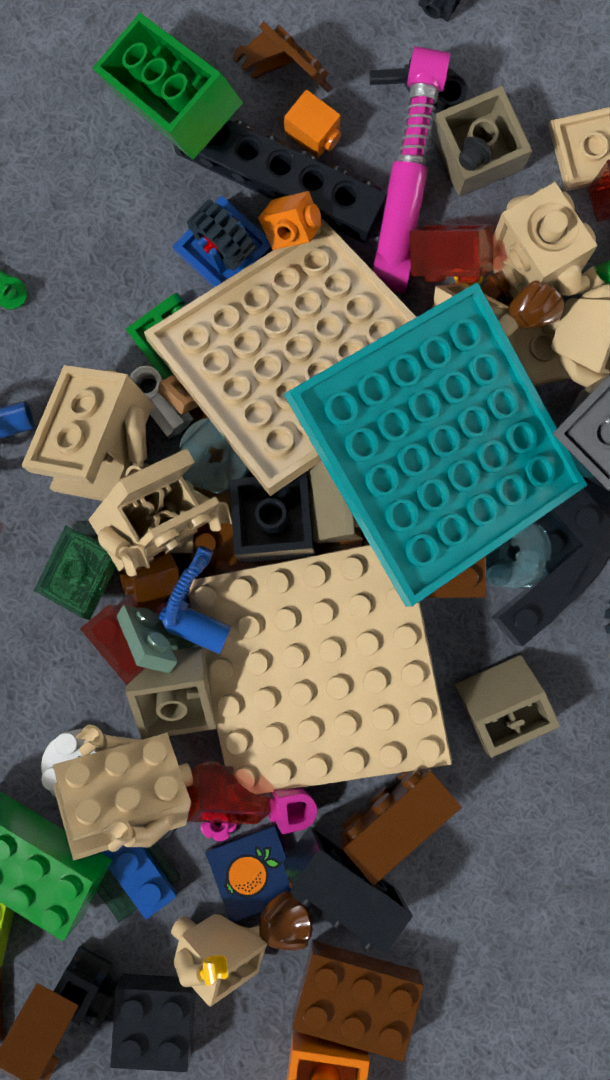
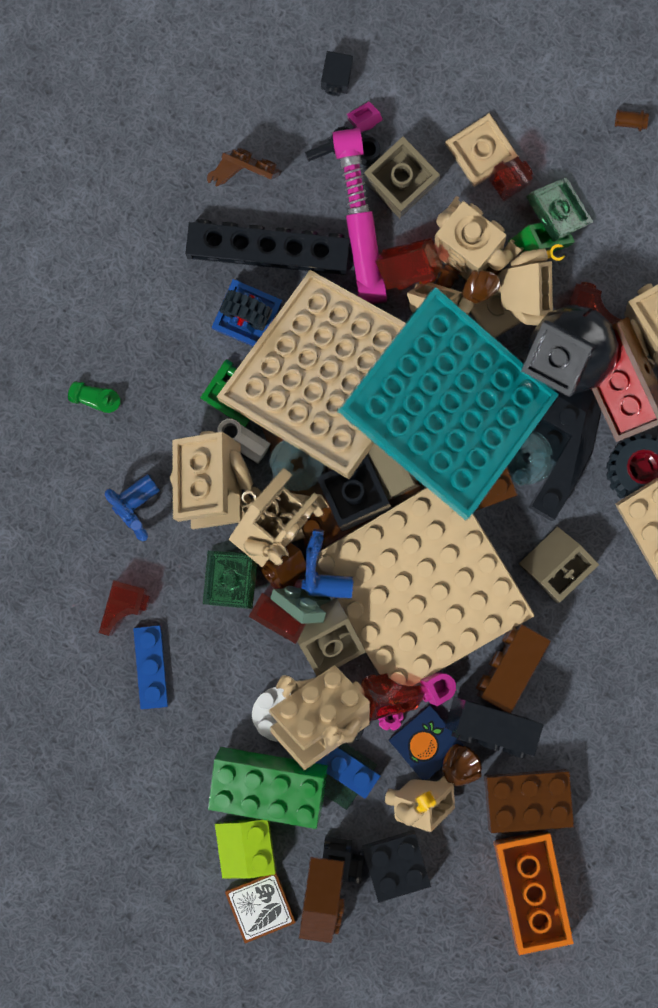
camera: 20 degrees left, 0 degrees up
(168, 85) = (171, 219): green brick -> none
(176, 395) = (255, 432): medium nougat plate -> none
(290, 220) = (289, 281): orange brick -> none
(313, 124) = (279, 206): orange brick -> none
(463, 54) = (365, 117): none -> dark pink plate
(475, 152) = (401, 192): black piece -> none

